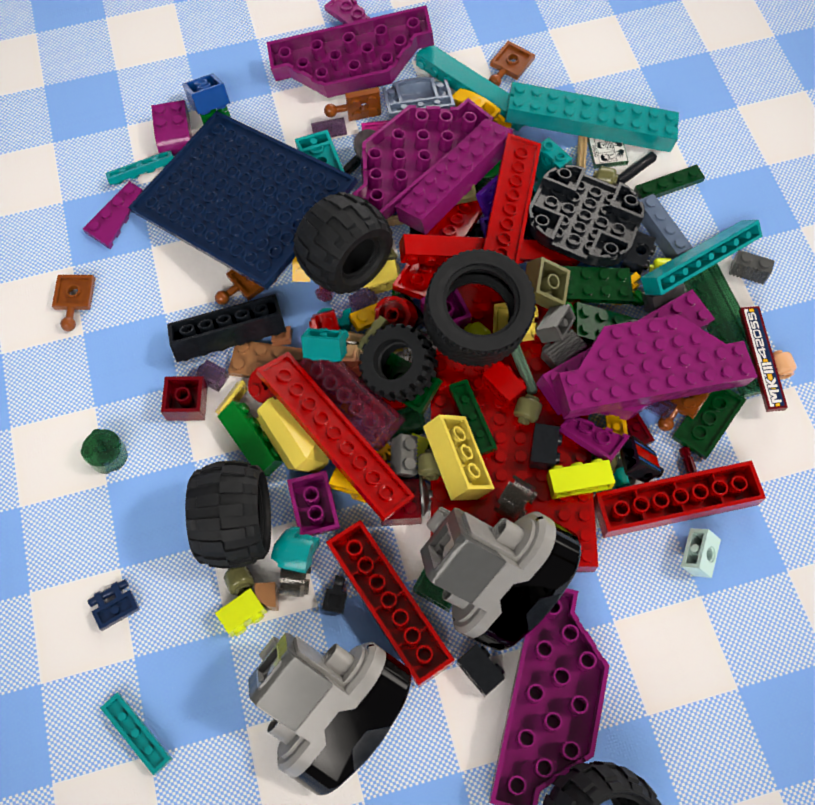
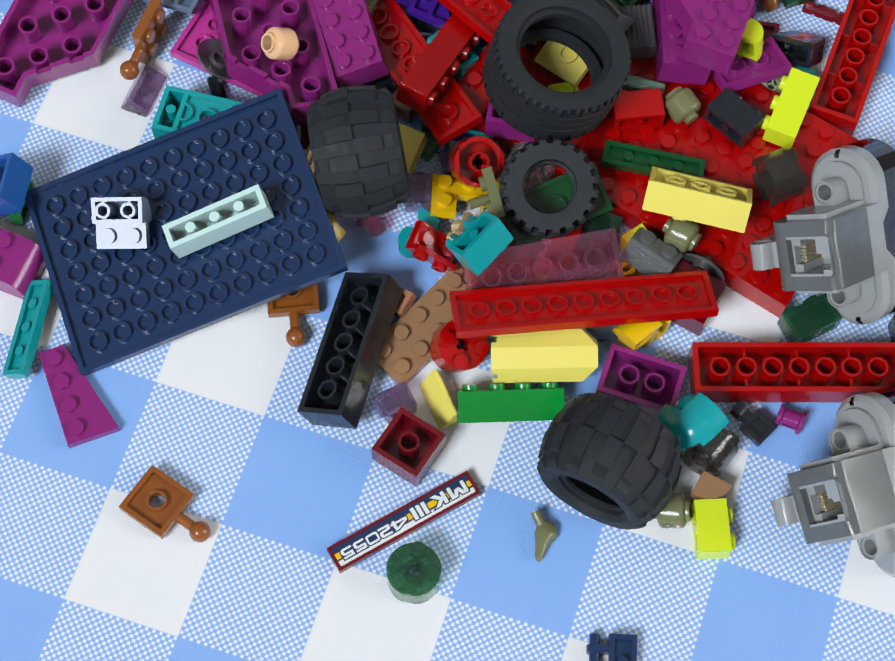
camera: 60 degrees left, 0 degrees up
(140, 427) = (403, 522): none -> tile
(175, 513) = (544, 534): none -> olive animal
(220, 161) = (121, 222): none -> brick
(247, 202) = (218, 221): none -> light aqua brick
(354, 618) = (790, 419): none -> magenta bush
(387, 160) = (280, 43): none -> light nougat head
(610, 422) = (752, 41): none -> neon yellow brick

